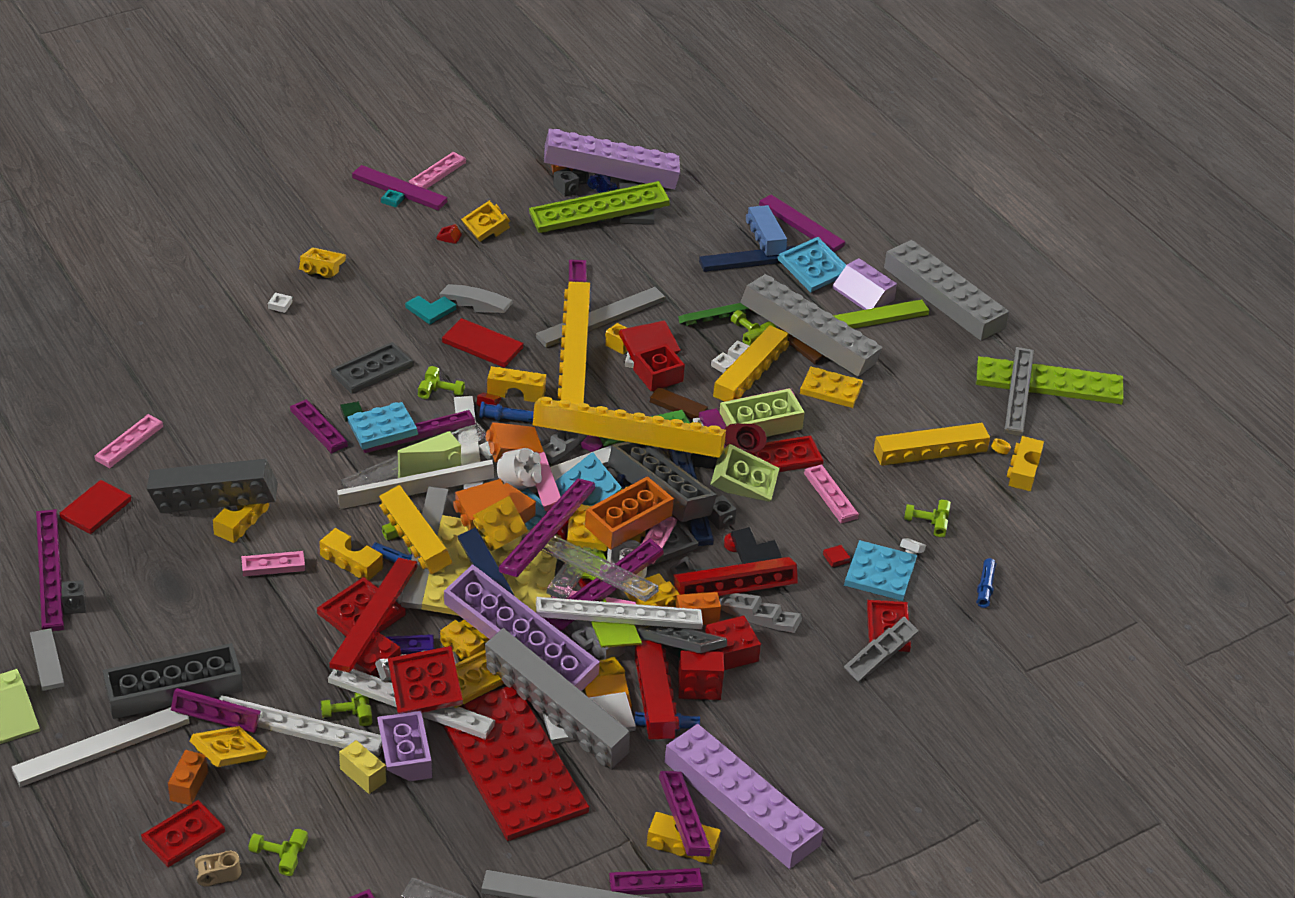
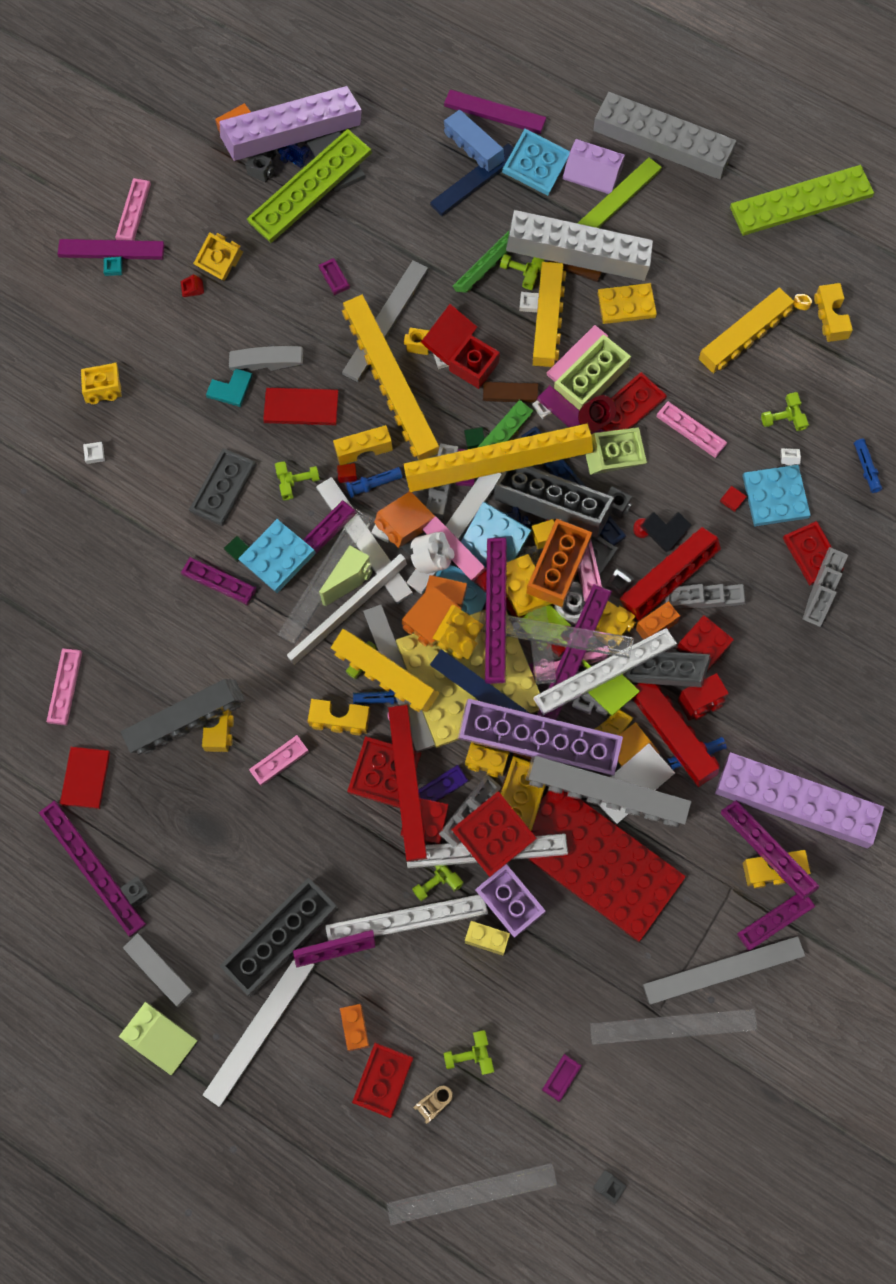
camera: 20 degrees left, 30 degrees up
(228, 746) = (370, 982): yellow plate -> none
(722, 362) = (523, 323): white plate -> none
(1019, 391) = (787, 230): light grey tile -> none

